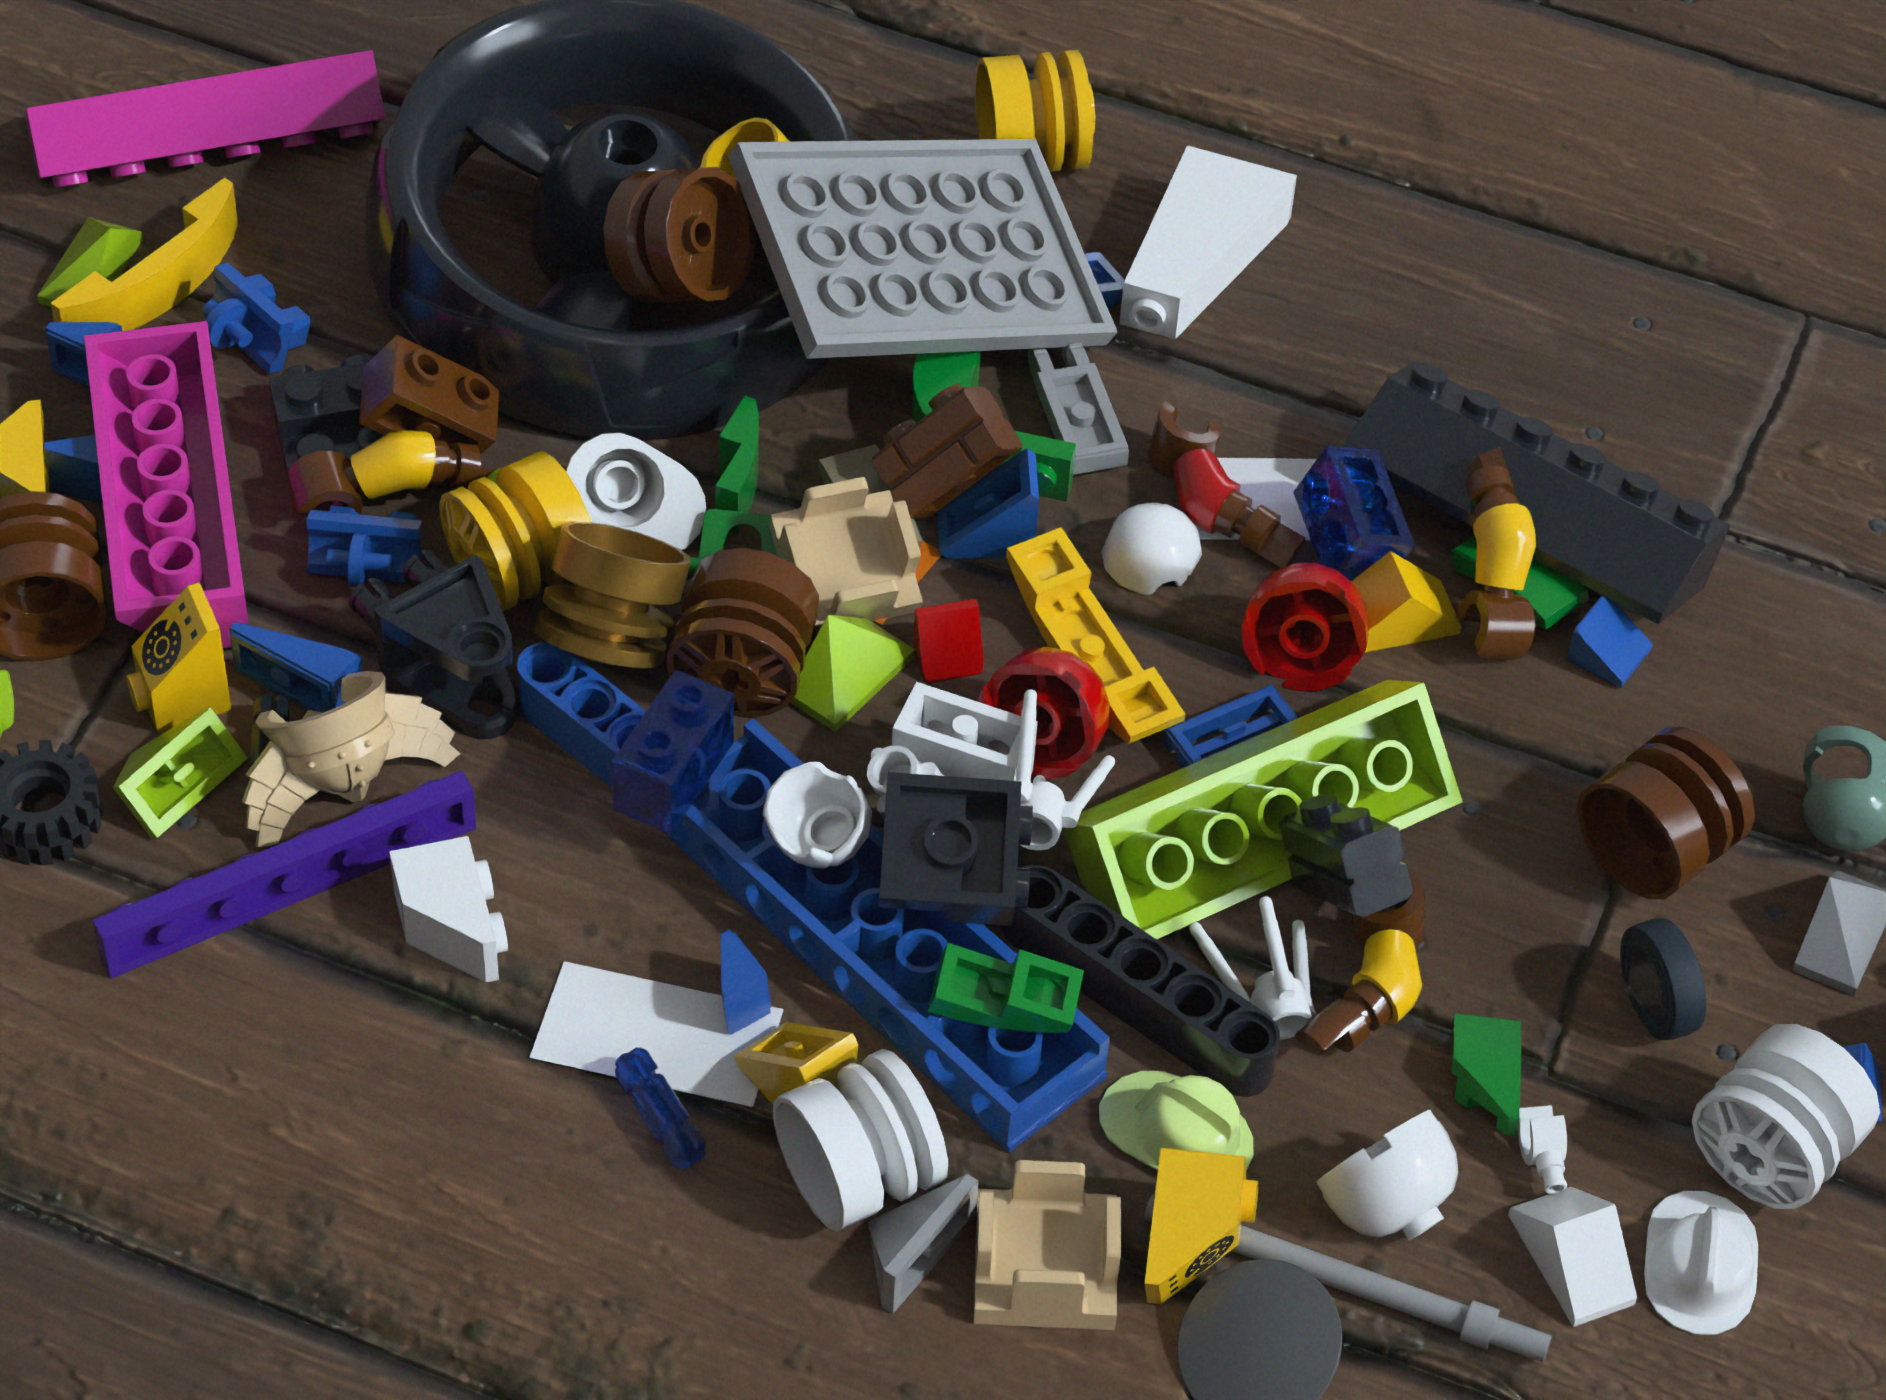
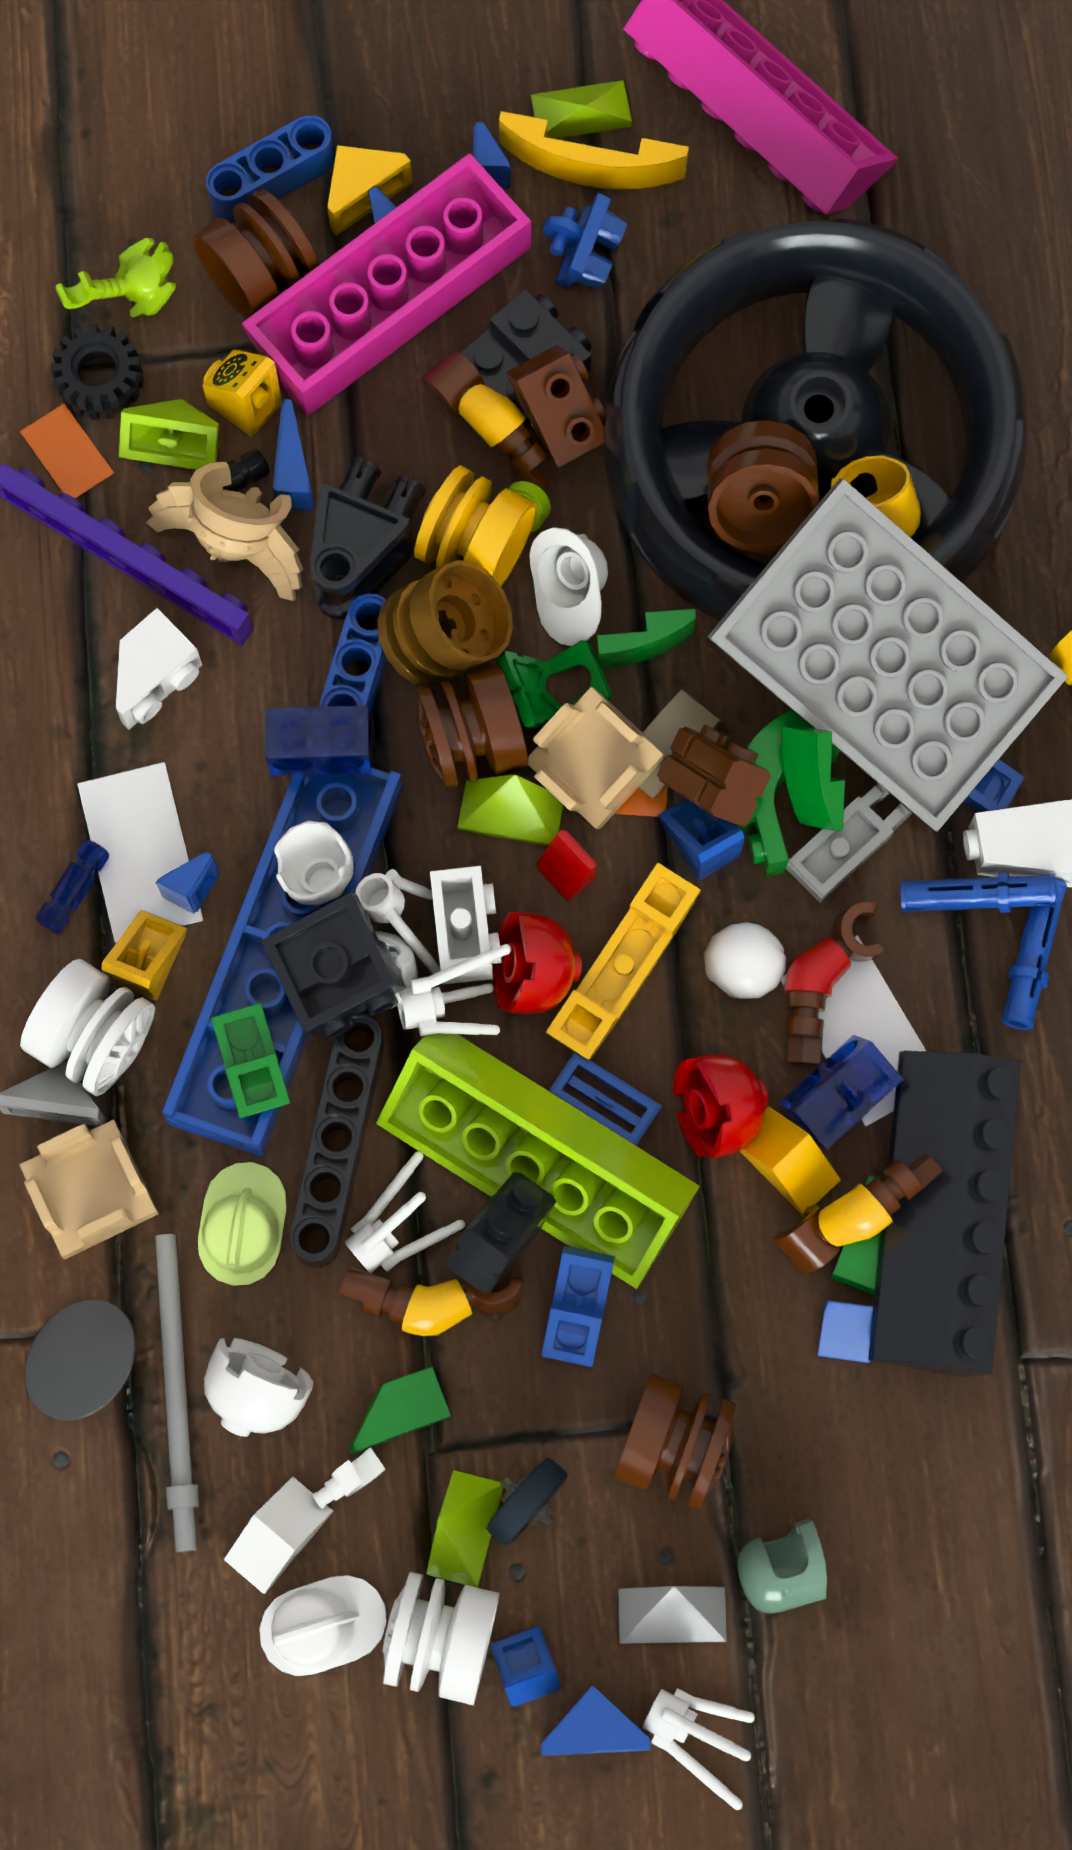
camera: 65 degrees right, 25 degrees up
(98, 886) = (66, 452): none -> orange sticker
(362, 544) = (417, 440): blue hips -> none
(1016, 381) = (807, 770): none -> green slope
(1195, 1217) = (149, 1270): yellow slope -> none
(1216, 309) = (979, 893): none -> blue pin
(1310, 335) = (1029, 972): none -> blue pin
(1463, 865) = (578, 1306): none -> blue slope
(1649, 1072) = (461, 1529): none -> lime slope

